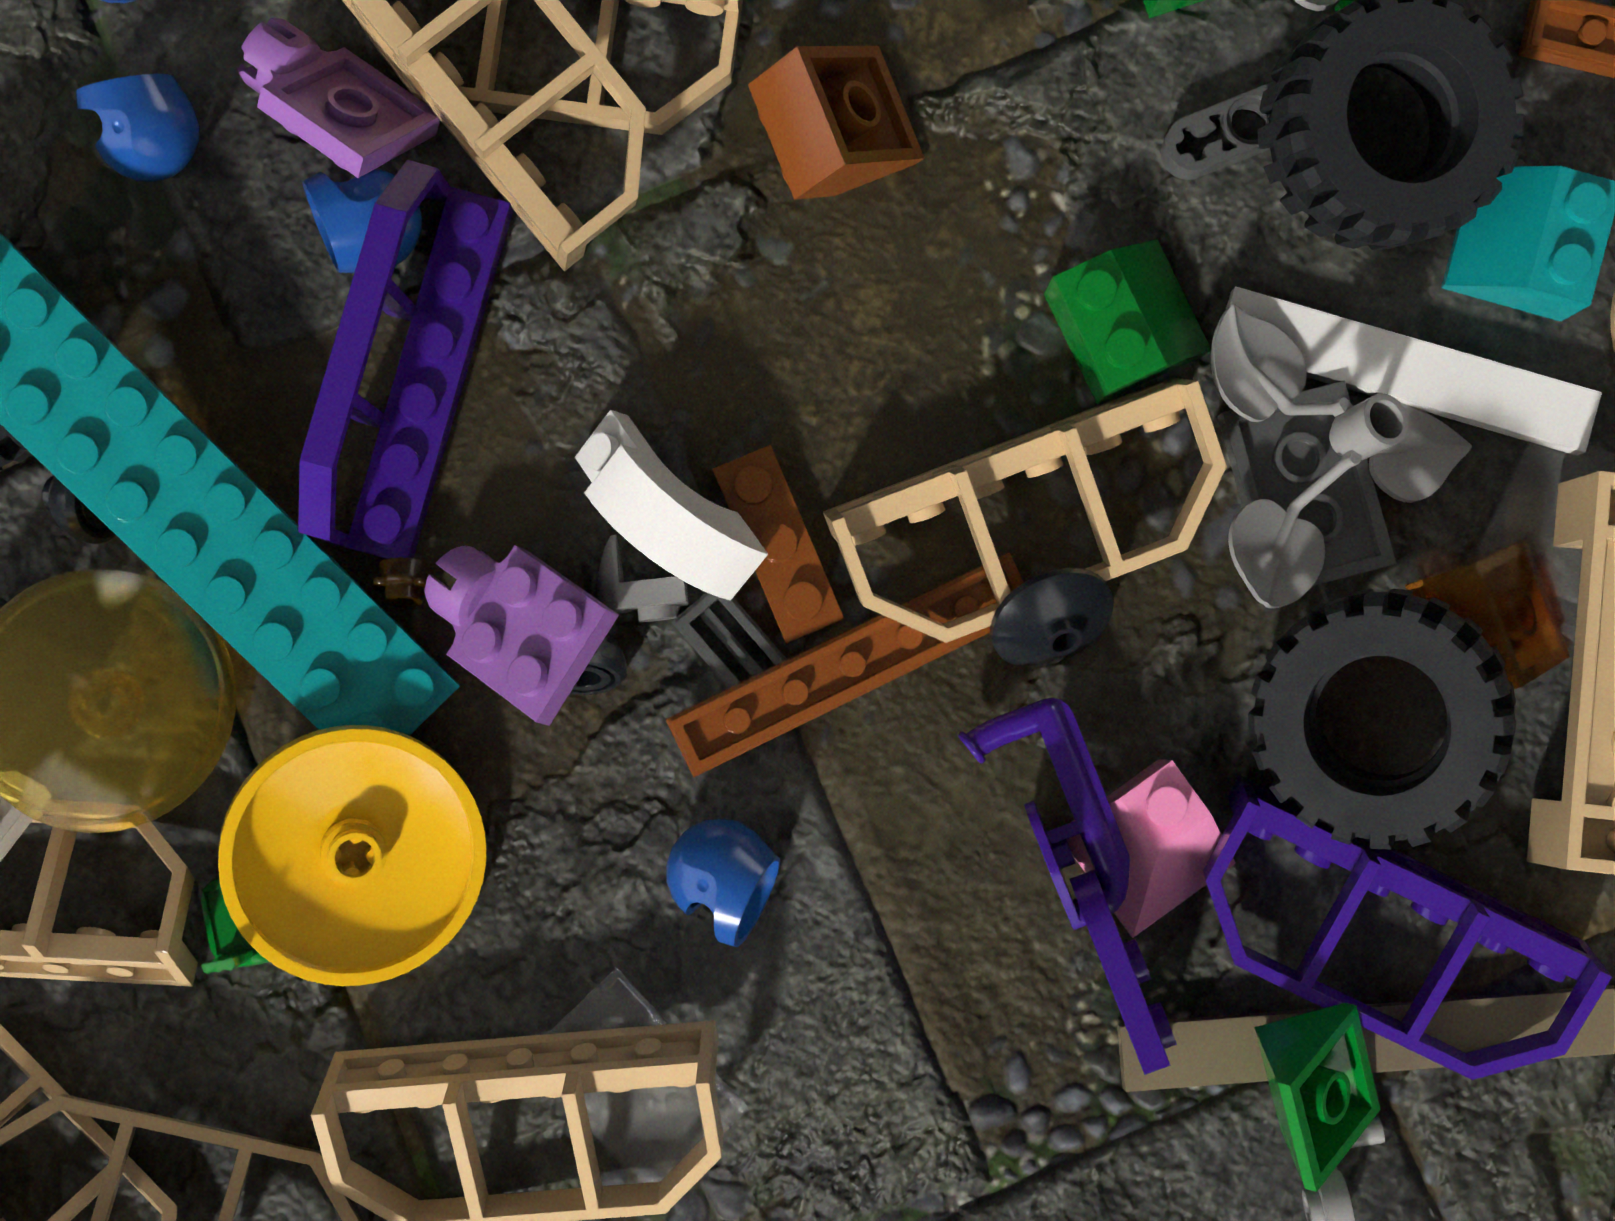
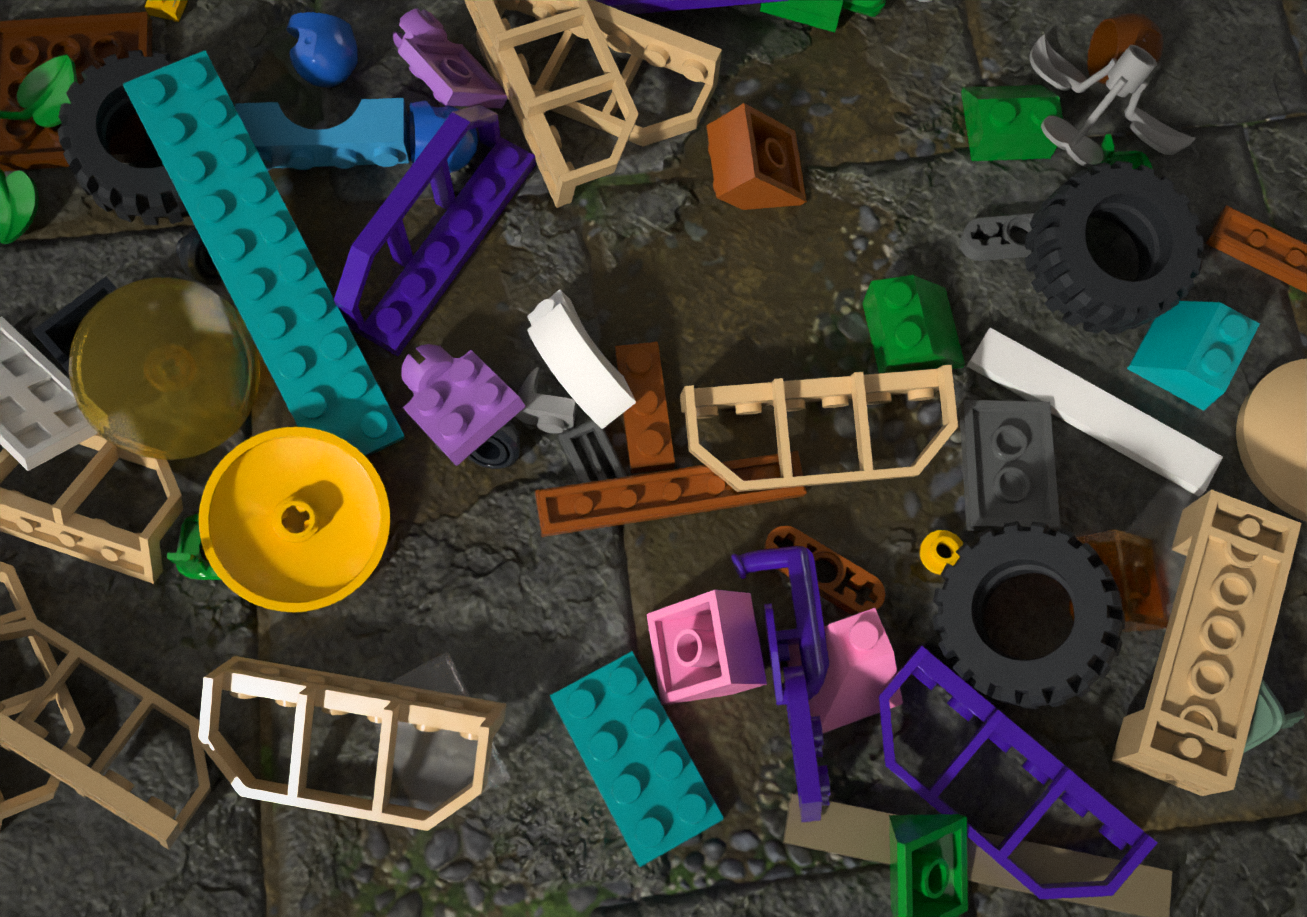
camera: 10 degrees right, 15 degrees down
(263, 239) = (371, 136): none -> dark azure arch
(402, 581) = (388, 359): dark brown plate -> none
(727, 871) = (537, 598): blue helmet -> none
(904, 1036) = (636, 759): none -> teal plate
(958, 869) = (706, 647): none -> bright pink slope
(1051, 617) = (814, 482): black dish -> none
(1136, 711) = (859, 577): none -> dark orange beam
(1223, 646) = (929, 554): none -> yellow plate
(1408, 451) = (1081, 459): light grey plant -> none

